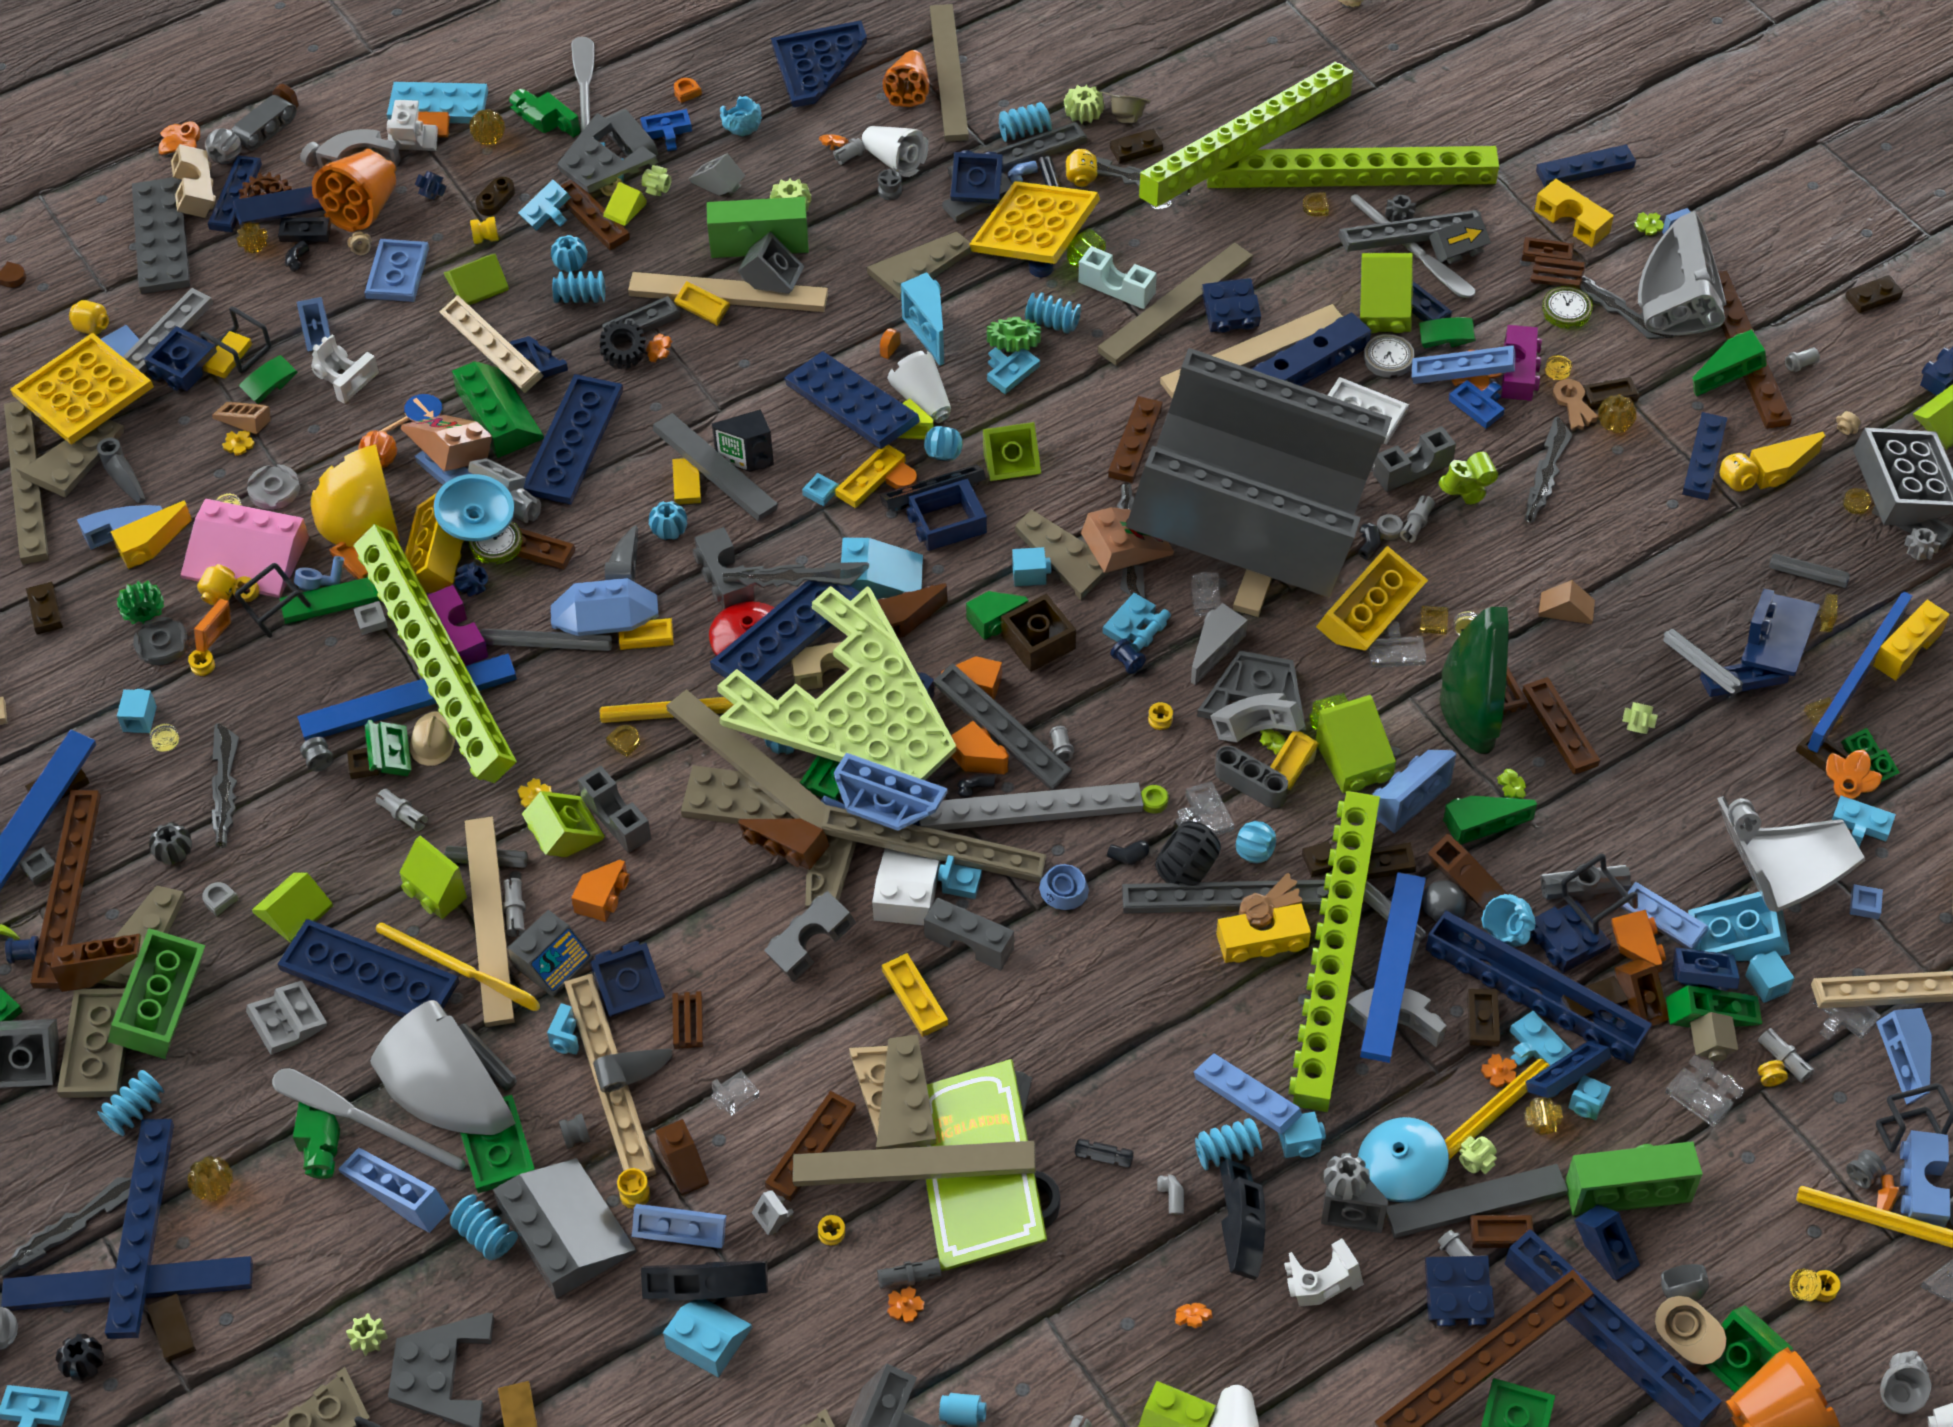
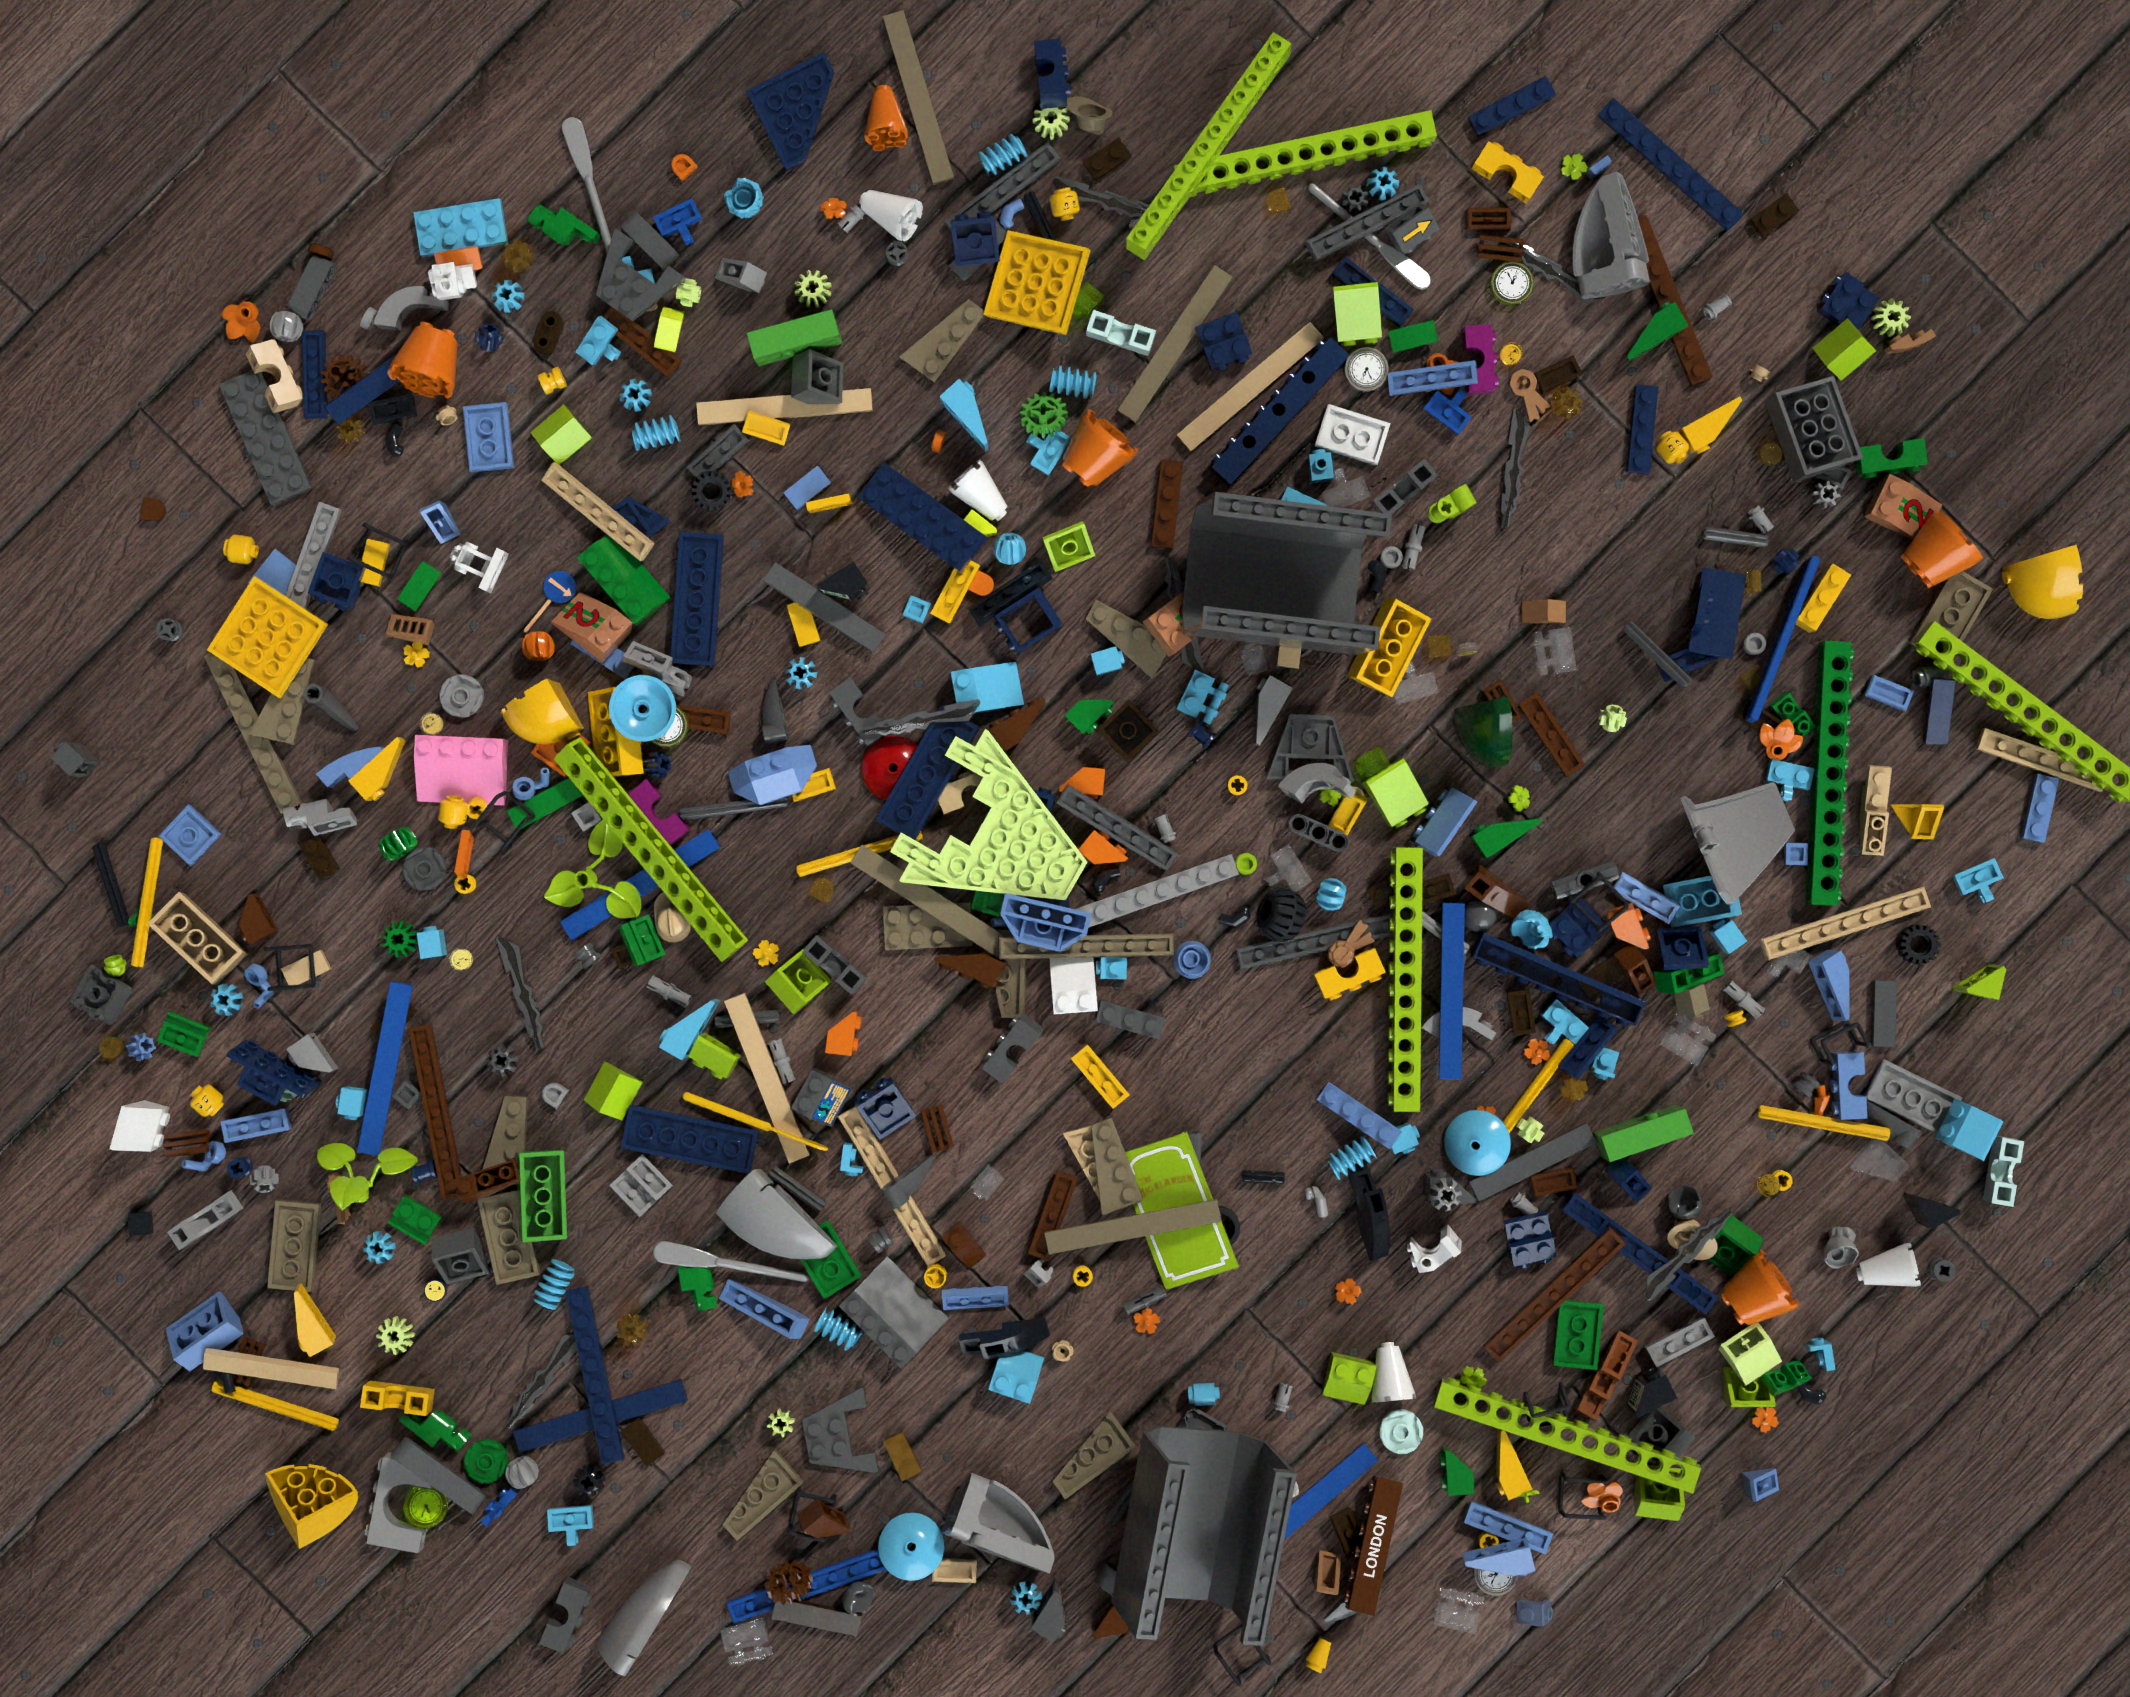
camera: 10 degrees left, 35 degrees up
(62, 565) = (319, 817): none -> light grey plate
(100, 699) = (394, 946): none -> green gear
(383, 703) = (568, 887): none -> lime plant
(394, 840) = (682, 1036): none -> medium azure slope
(464, 156) = (501, 295): none -> medium azure piece
(730, 363) = (807, 488): none -> medium blue tile
(750, 376) = (829, 503): none -> yellow tile
(775, 1312) = (1063, 1357): none -> tan plate
(1066, 366) = (1097, 450): none -> orange cone
(1093, 63) = (1050, 59): none -> dark blue arch
(1433, 200) = (1376, 180): none -> medium azure piece
(1584, 646) = (1560, 648): none -> clear plate
(1680, 1333) = (1686, 1253): none -> dark grey sword
(1759, 237) = (1670, 164): none -> dark blue plate
(1825, 678) = (1754, 644): none -> light grey tile
(1837, 551) = (1760, 519): none -> light grey pin
(1869, 598) = (1785, 561): none -> dark blue gear
(1914, 825) = (1821, 763): none -> green brick

